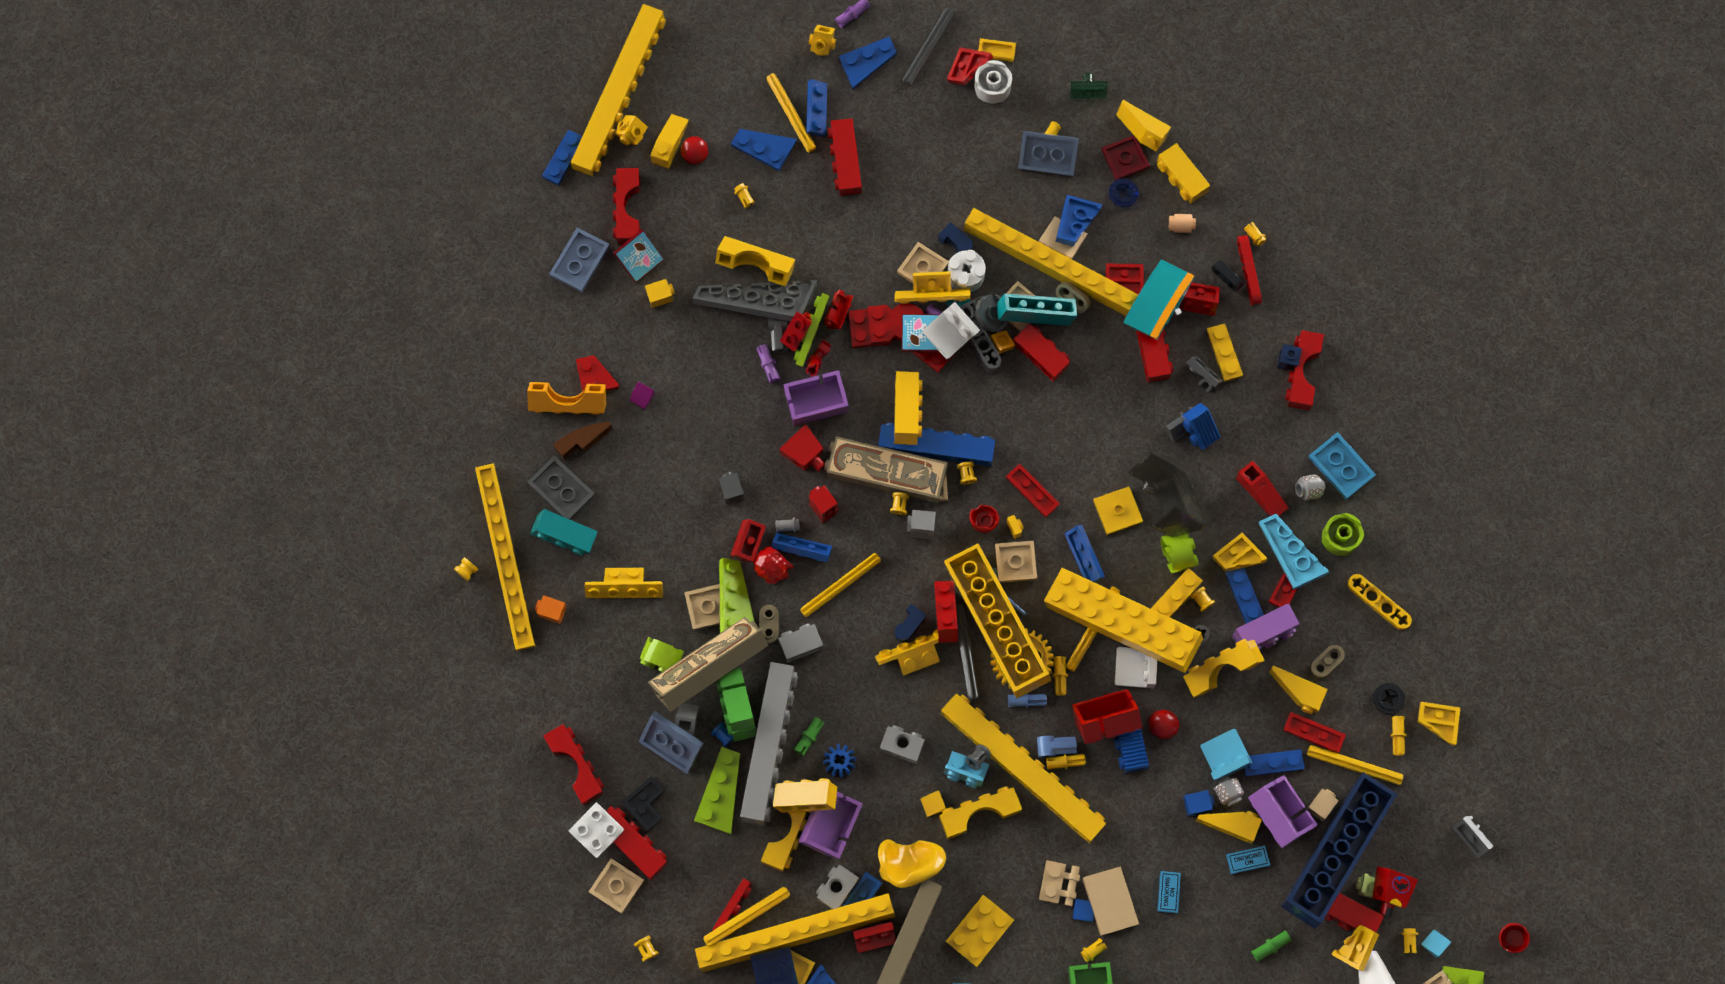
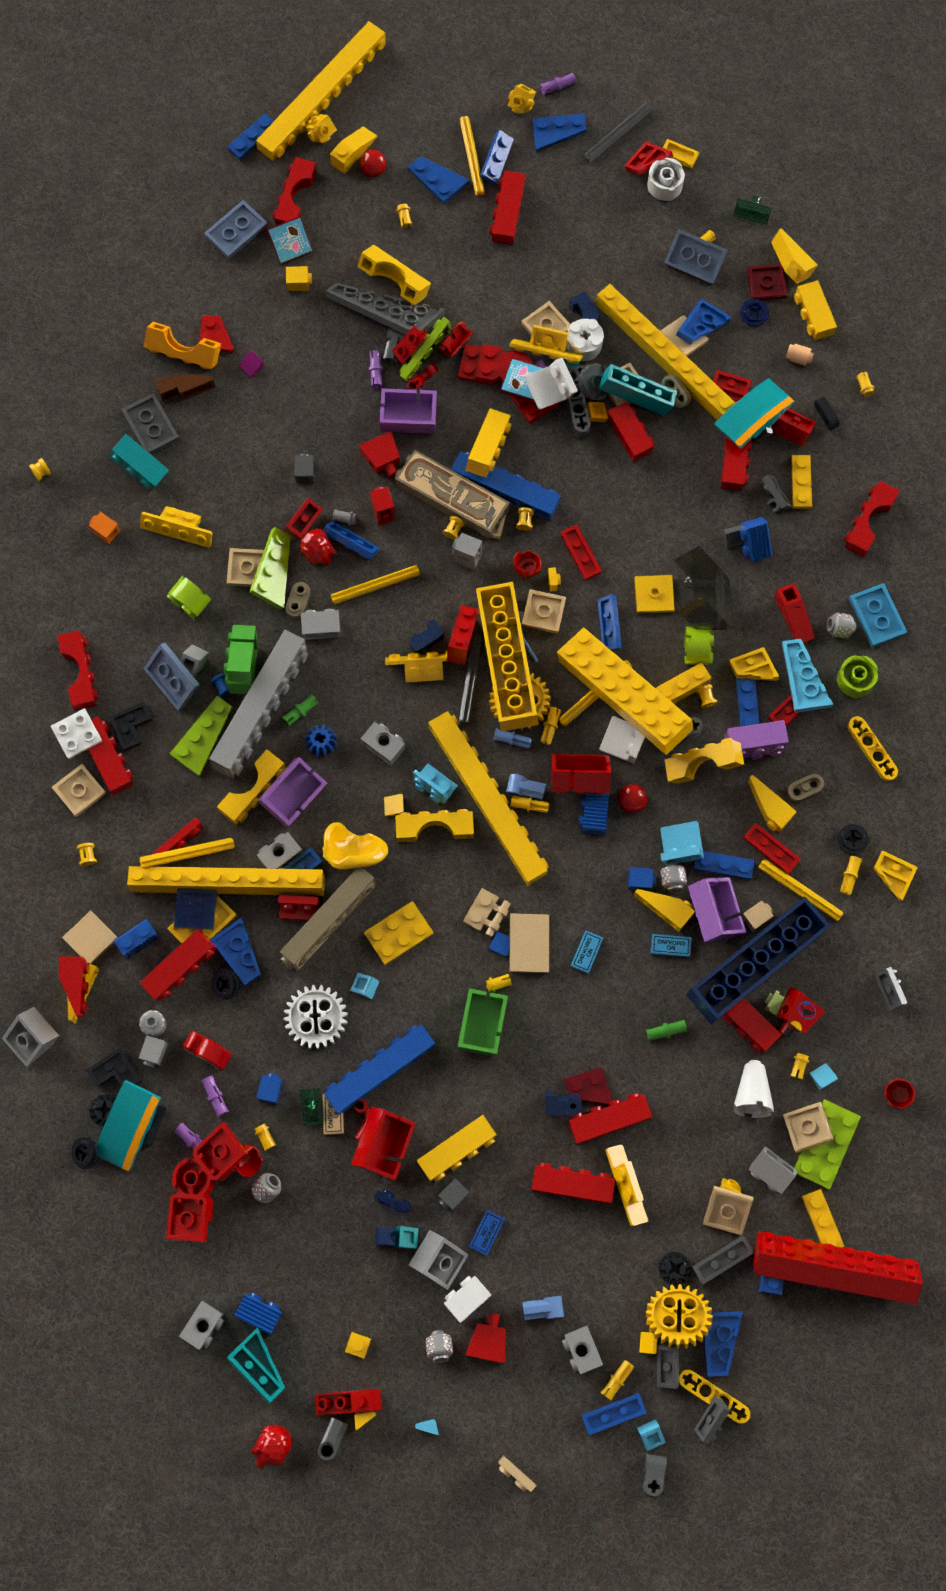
camera: 15 degrees right, 0 degrees up
(505, 557) = (78, 470): yellow plate -> none
(708, 663) = (227, 613): brick -> none
(805, 796) = (275, 758): yellow brick -> none
(978, 757) = (448, 774): dark grey bush -> none
(1249, 270) = (849, 413): red beam -> none
(1289, 356) = (860, 500): dark blue bracket -> none
(1357, 947) = (746, 1055): yellow wing -> none

